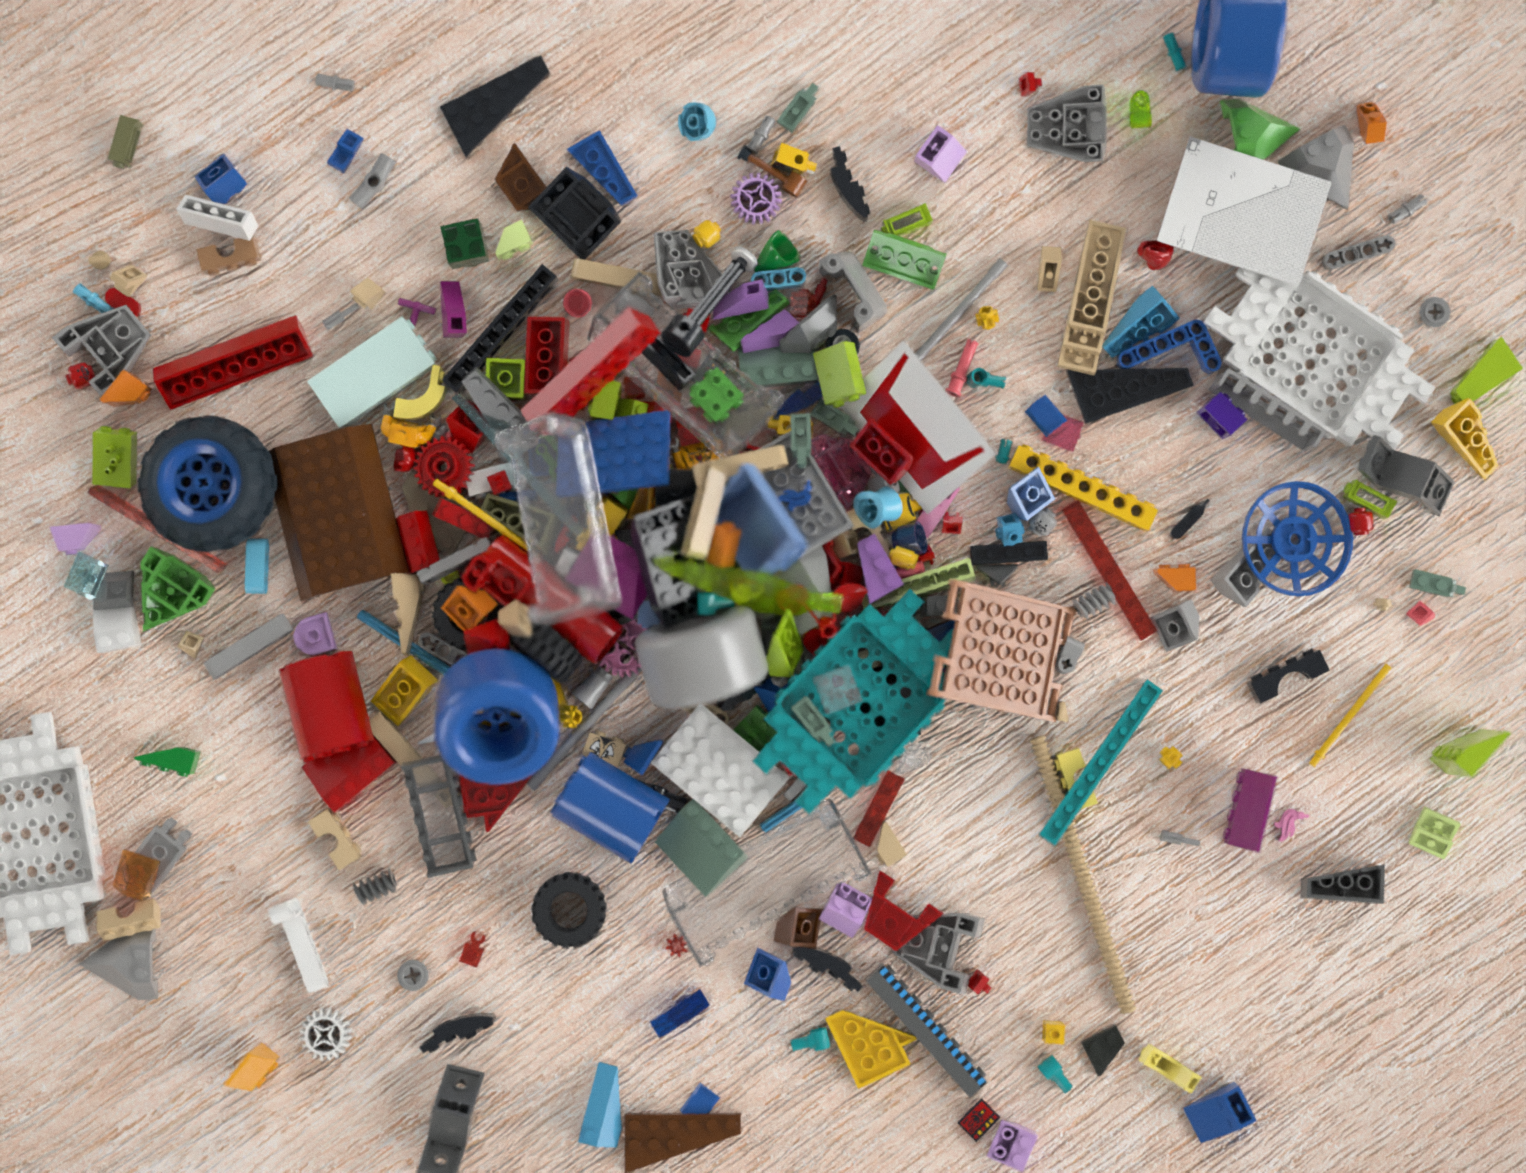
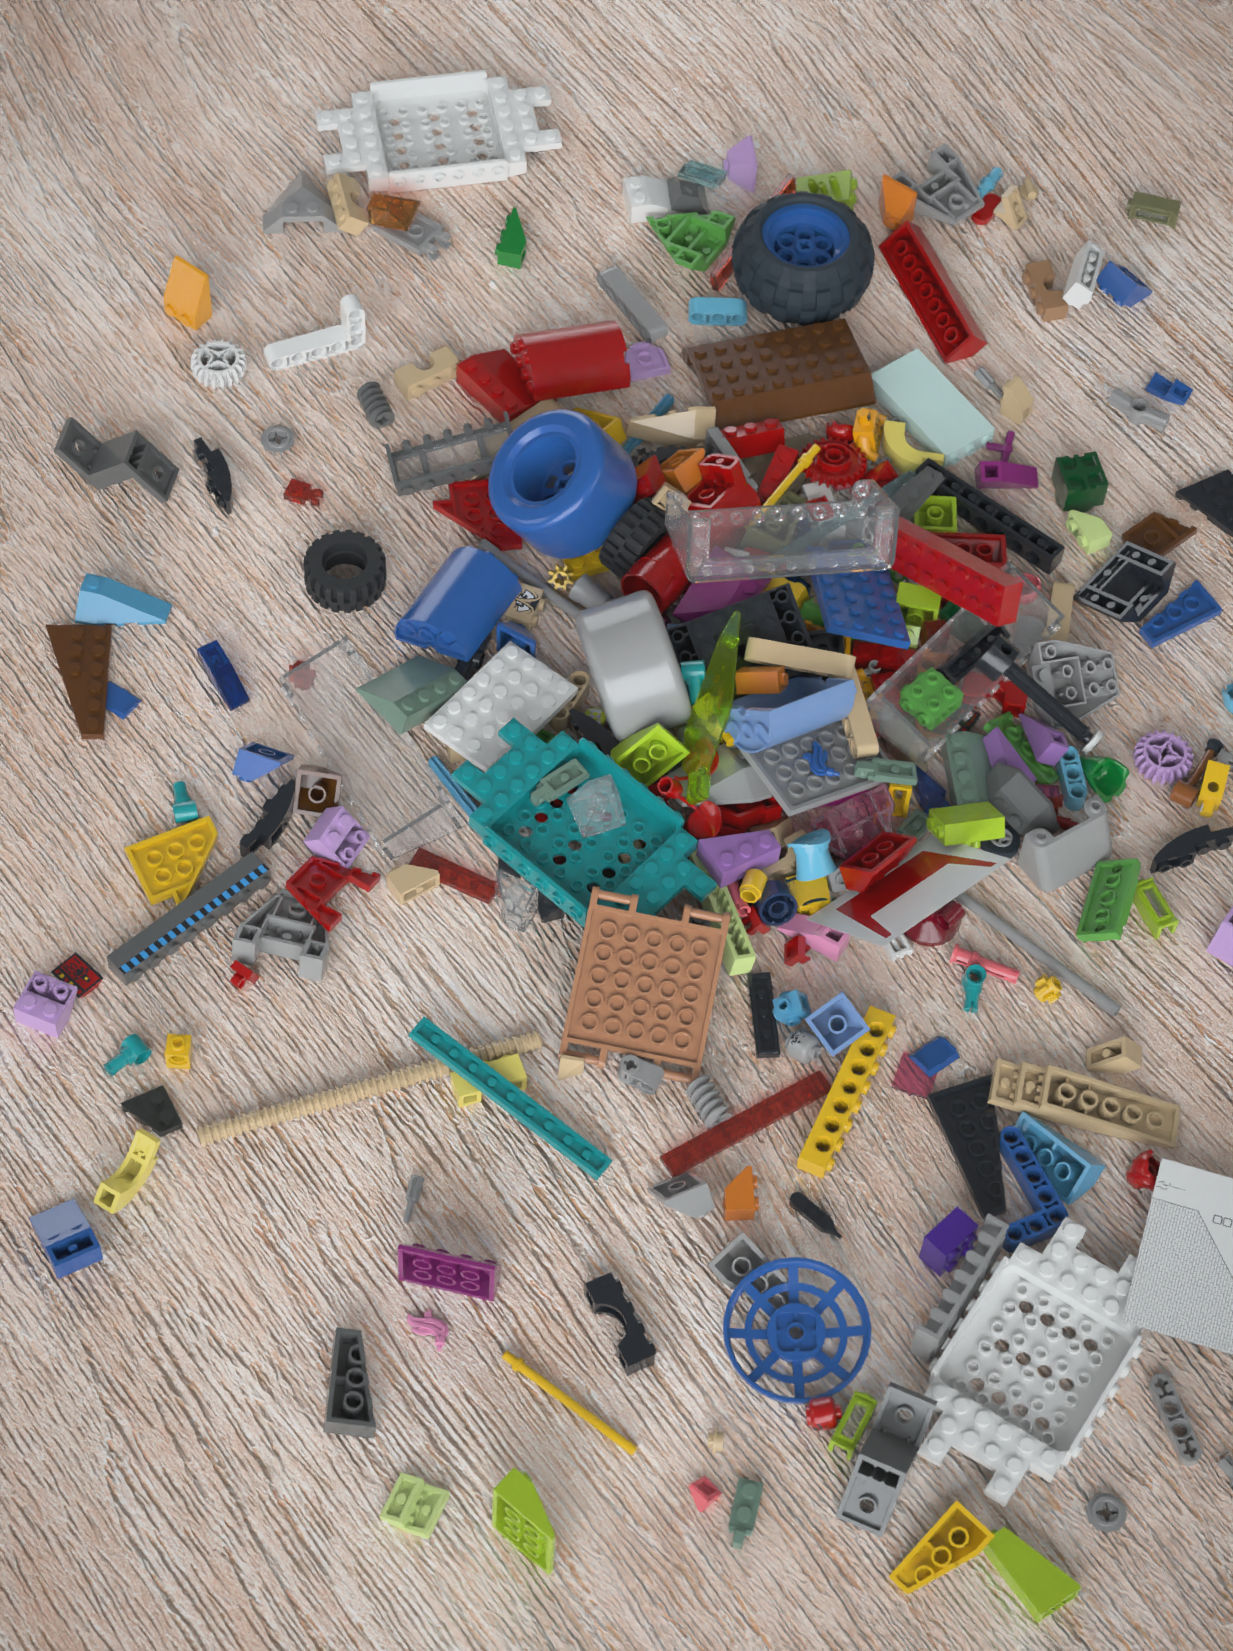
camera: 90 degrees right, 30 degrees down
(80, 375) = (910, 167): red head -> none
(191, 644) = (633, 260): tan slope -> none
(706, 234) = (1116, 707): yellow head -> none
(997, 573) = (738, 994): dark grey piece -> none
(1003, 452) = (889, 1007): teal pin -> none
(1170, 757) = (515, 1185): yellow gear -> none

